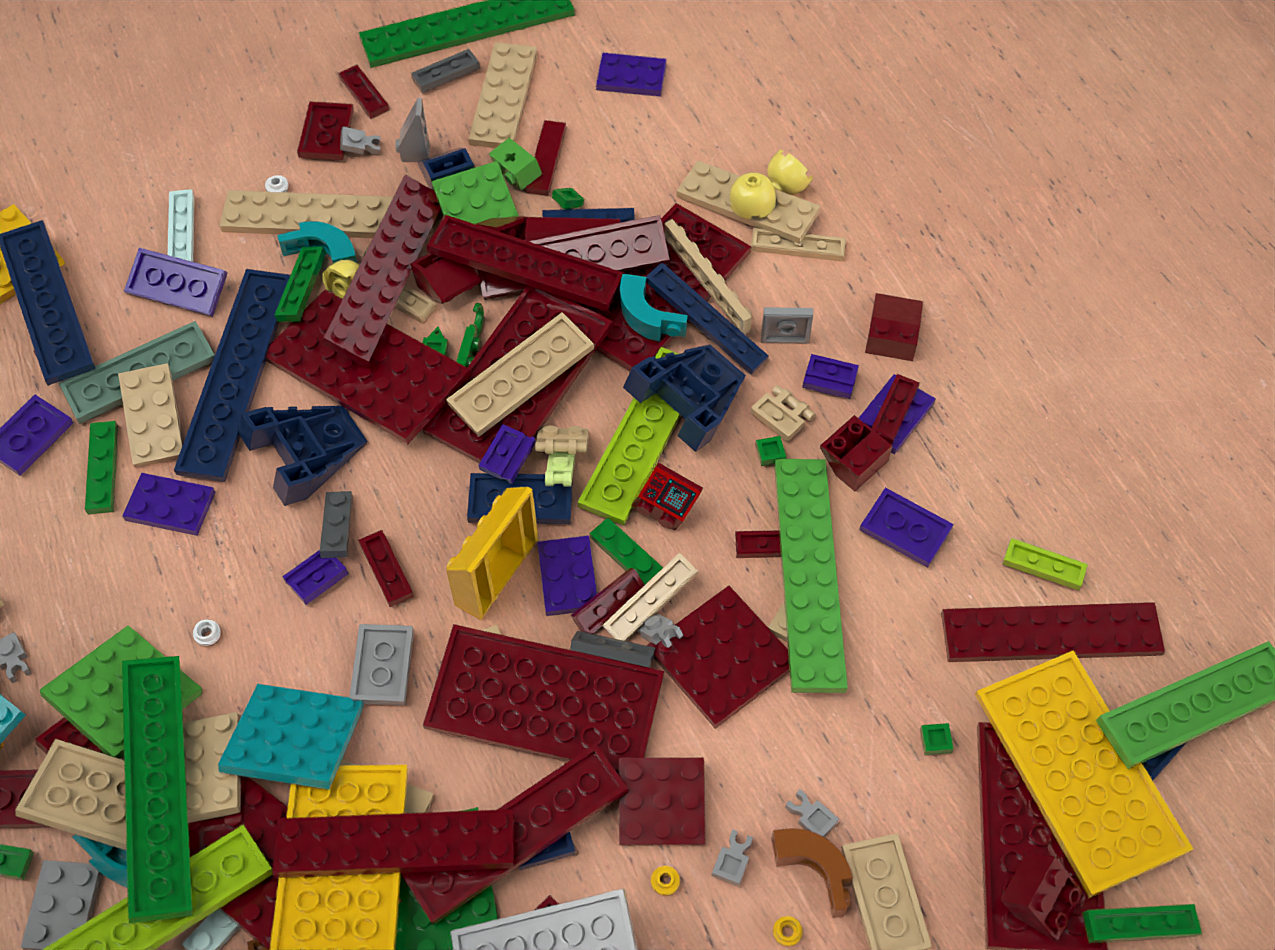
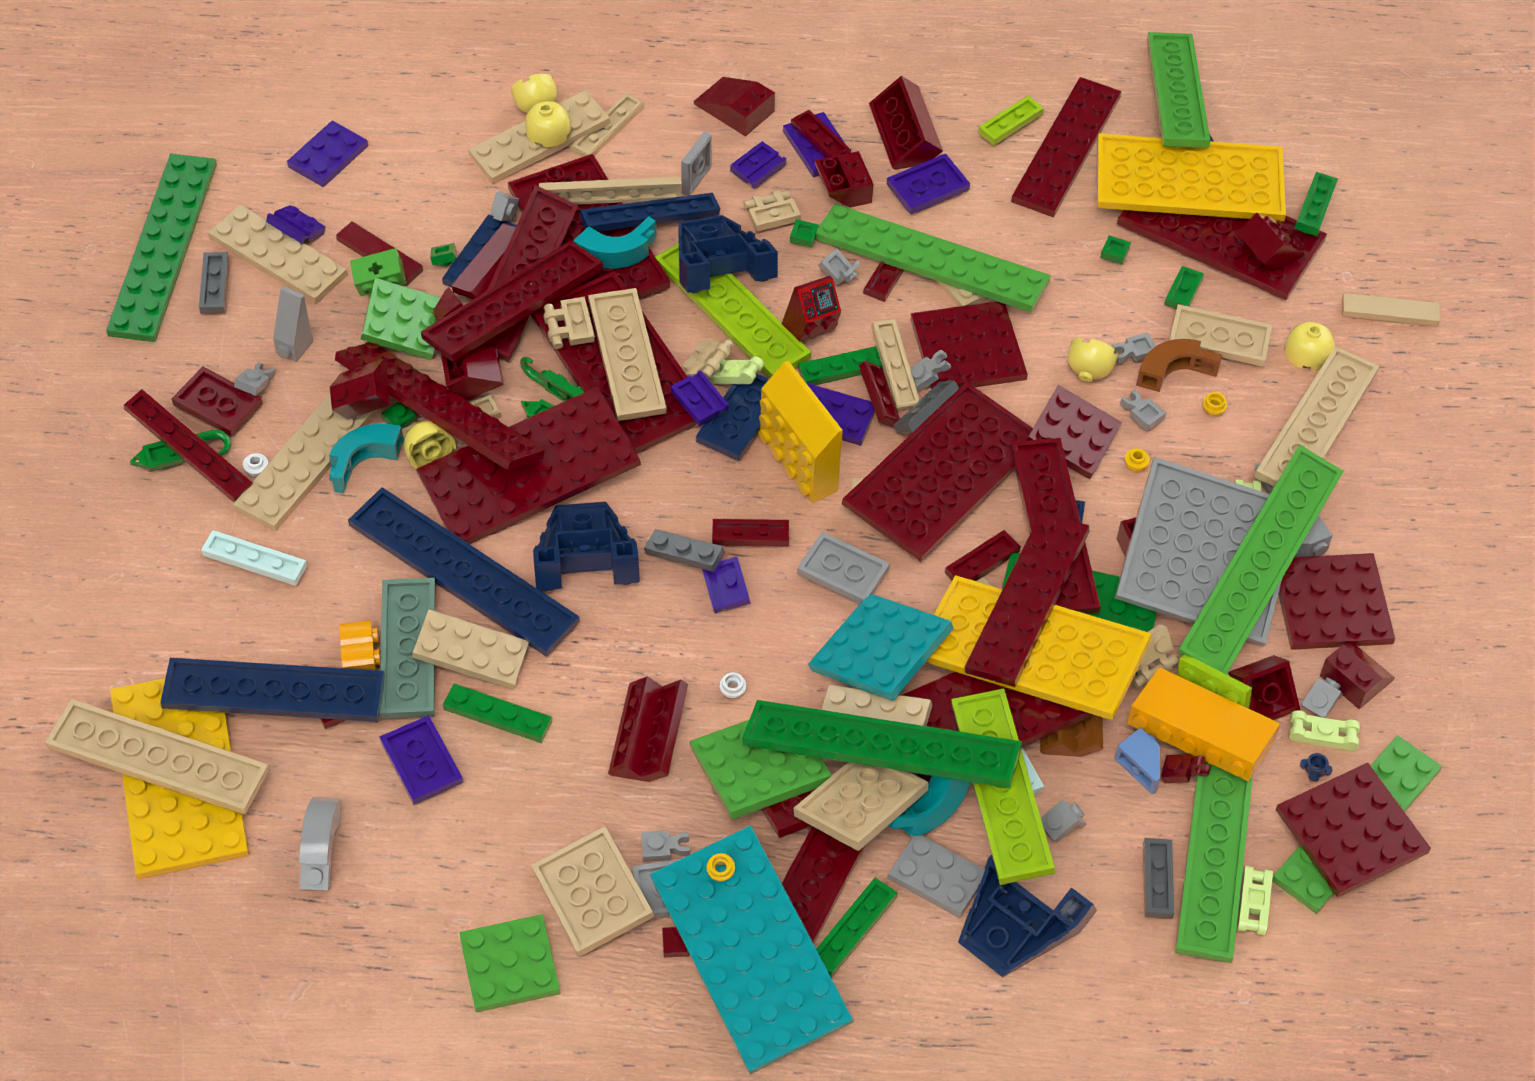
camera: 65 degrees left, 5 degrees down
(119, 336) = (358, 645): none -> light orange brick
(127, 586) = (648, 730): none -> dark red slope
(169, 504) = (575, 672): dark purple plate -> none
(175, 282) = (320, 581): tile -> none
(260, 131) = (187, 445): none -> dark red plate
(263, 131) = (160, 456): none -> green plate
(300, 284) = (399, 482): green plate -> none
(363, 91) = (185, 356): dark red tile -> none
(367, 205) = (361, 390): none -> dark red slope
(445, 165) = (341, 323): dark blue slope -> none
(454, 784) = (984, 557): none -> dark red plate
(529, 320) = (576, 319): none -> tan plate
(537, 89) = (295, 224): none -> dark purple plate
(643, 210) = (504, 206): none -> light grey bracket
(745, 497) = (838, 267): none -> light grey bracket
(763, 777) = (1091, 359): none -> light yellow cylinder
(928, 831) = (1184, 288): none -> green plate
(968, 474) = (905, 125): none -> dark red slope

